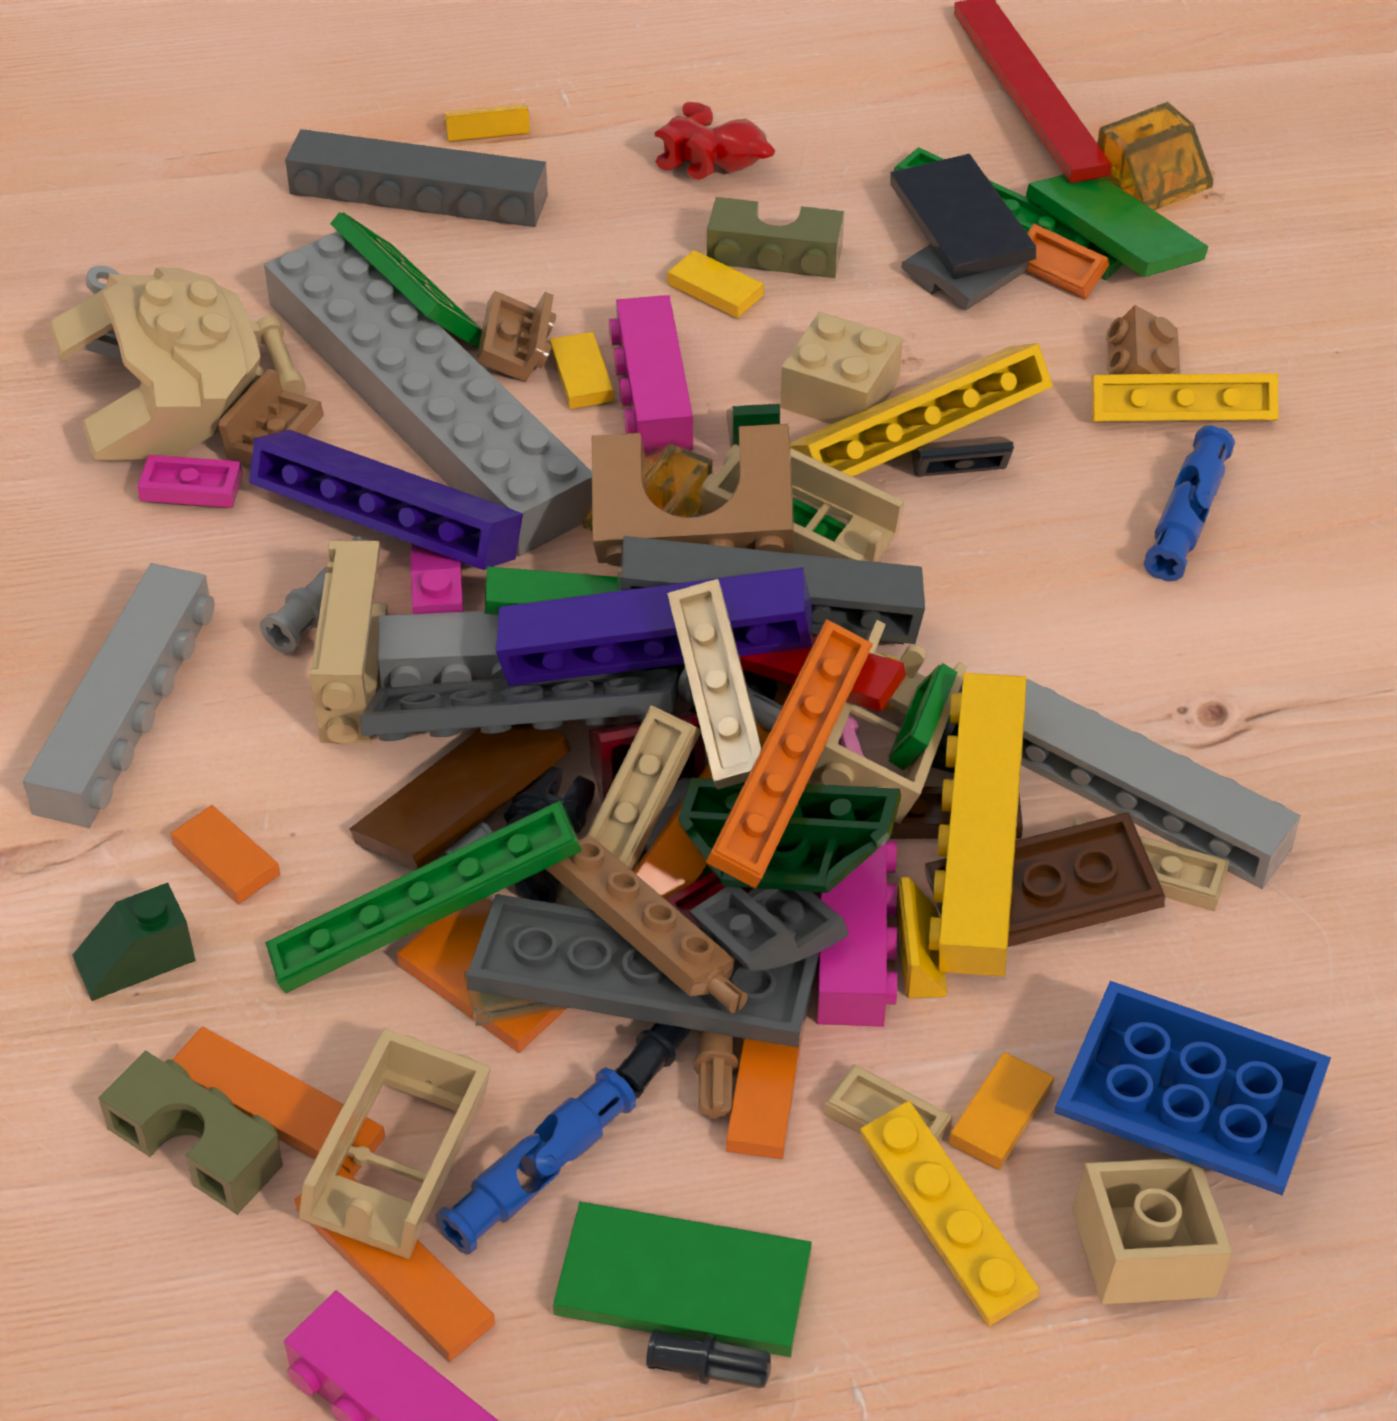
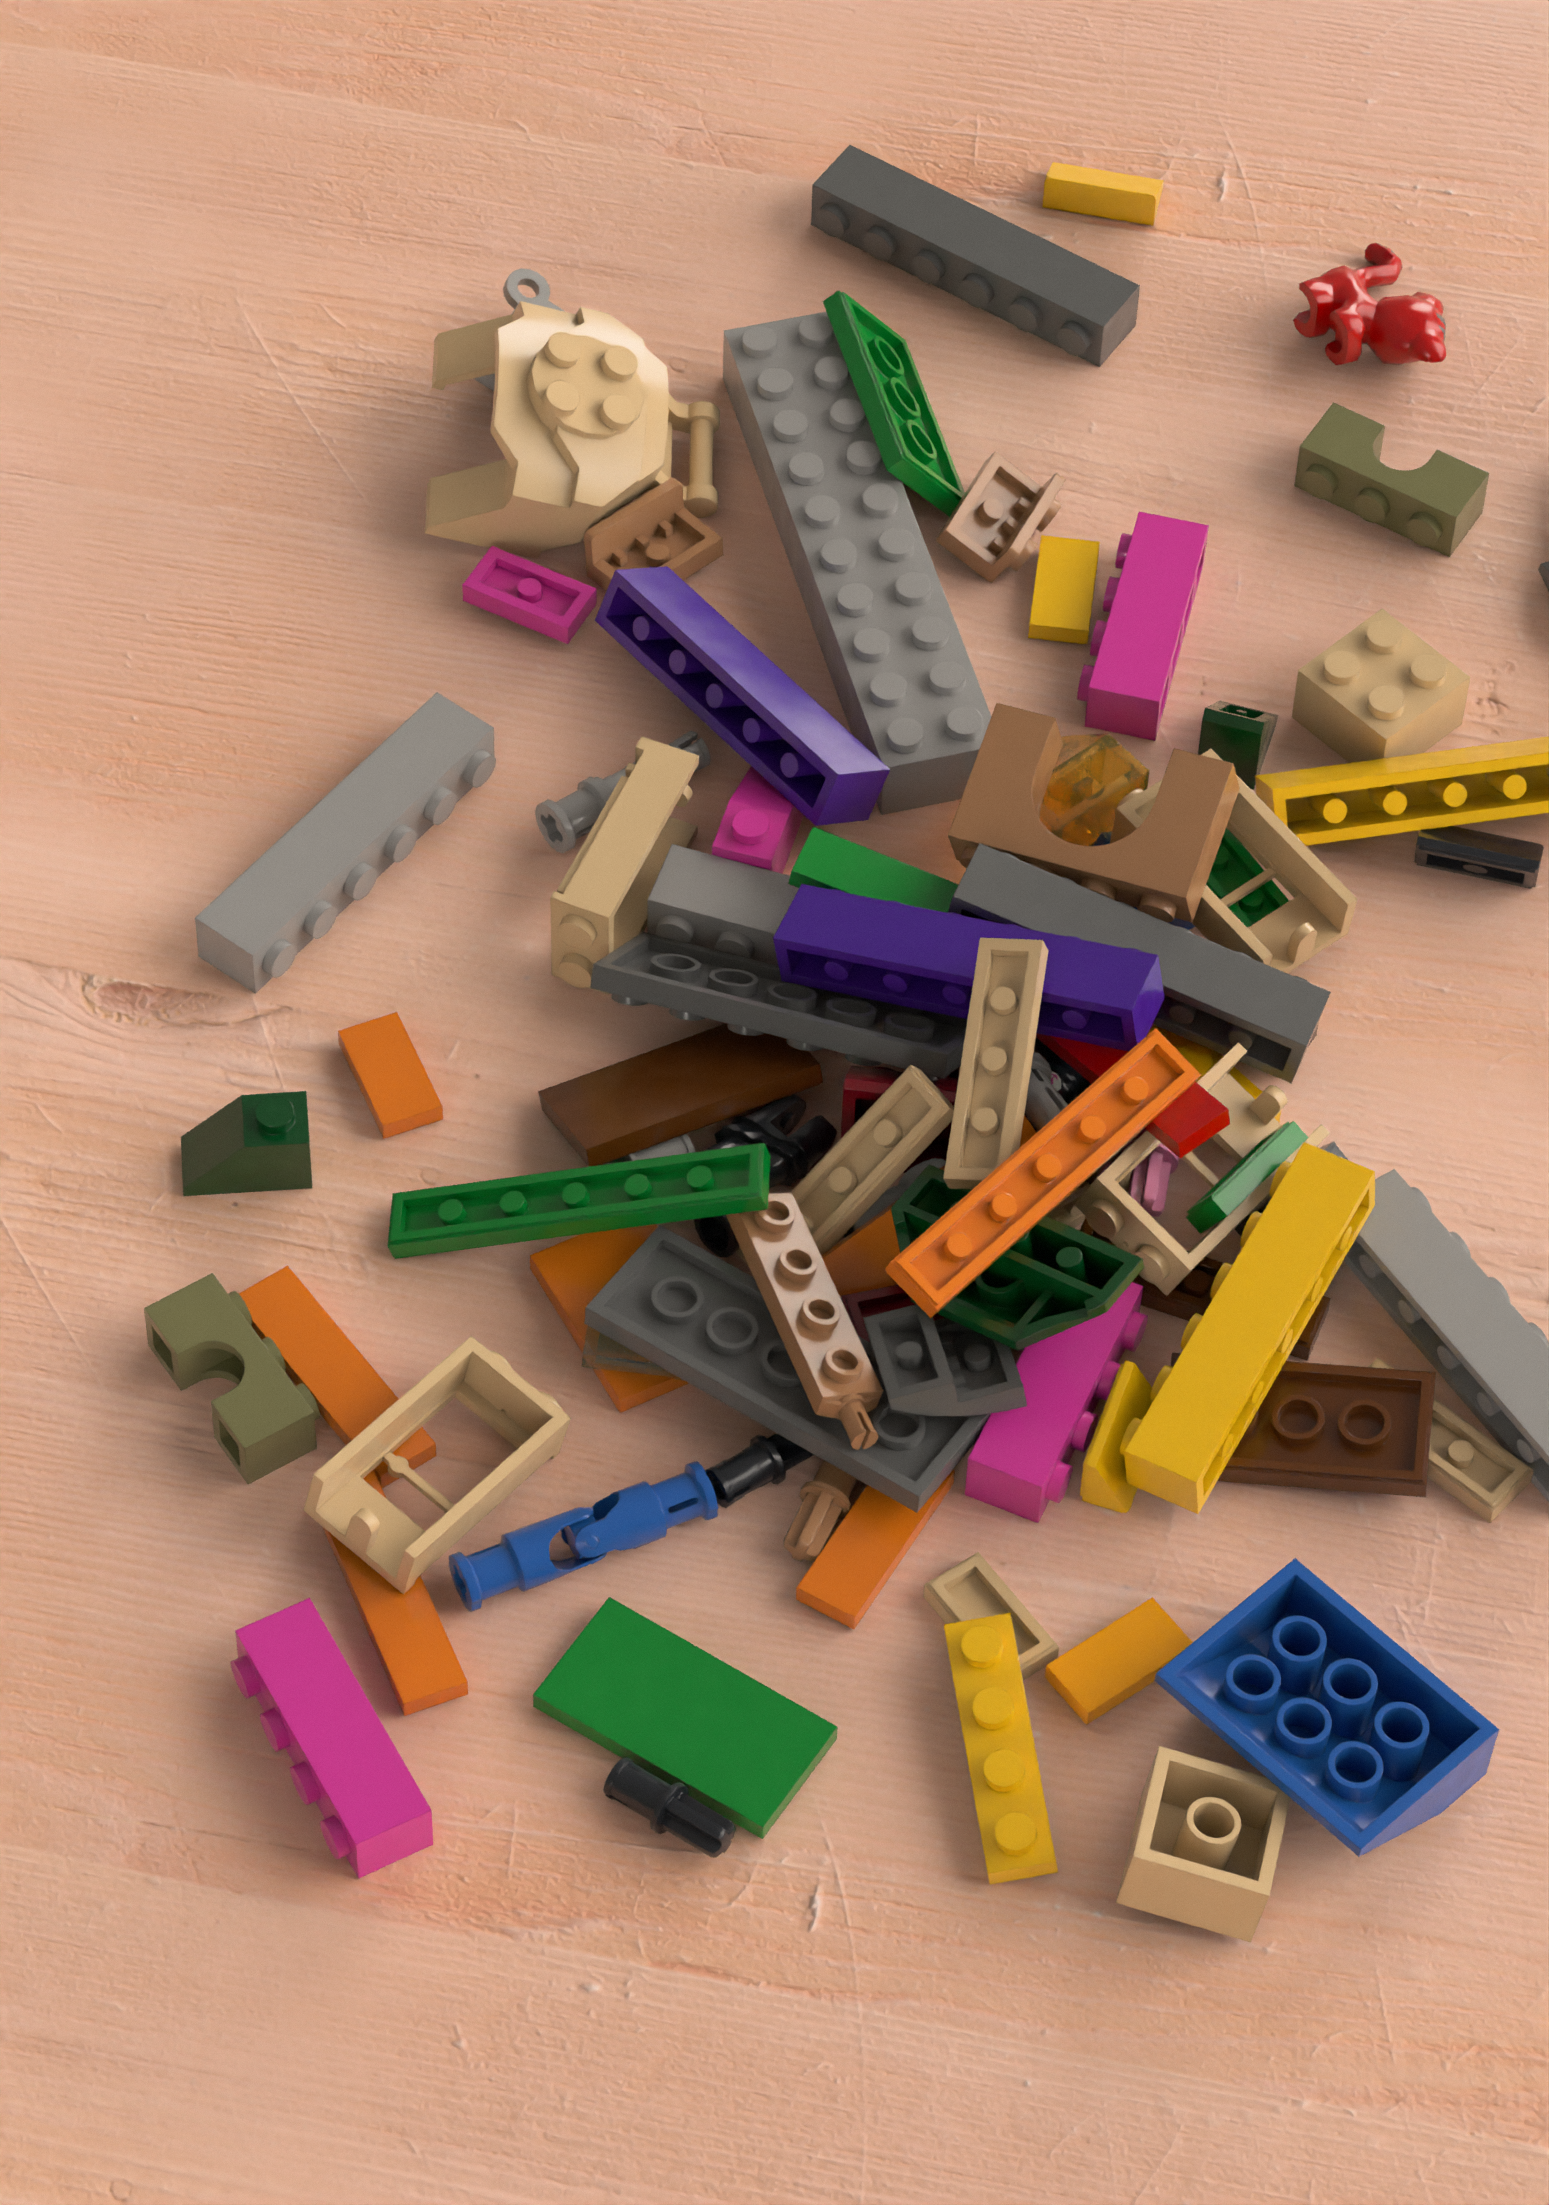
camera: 20 degrees right, 5 degrees up
(715, 283) = (1288, 520): yellow tile -> none

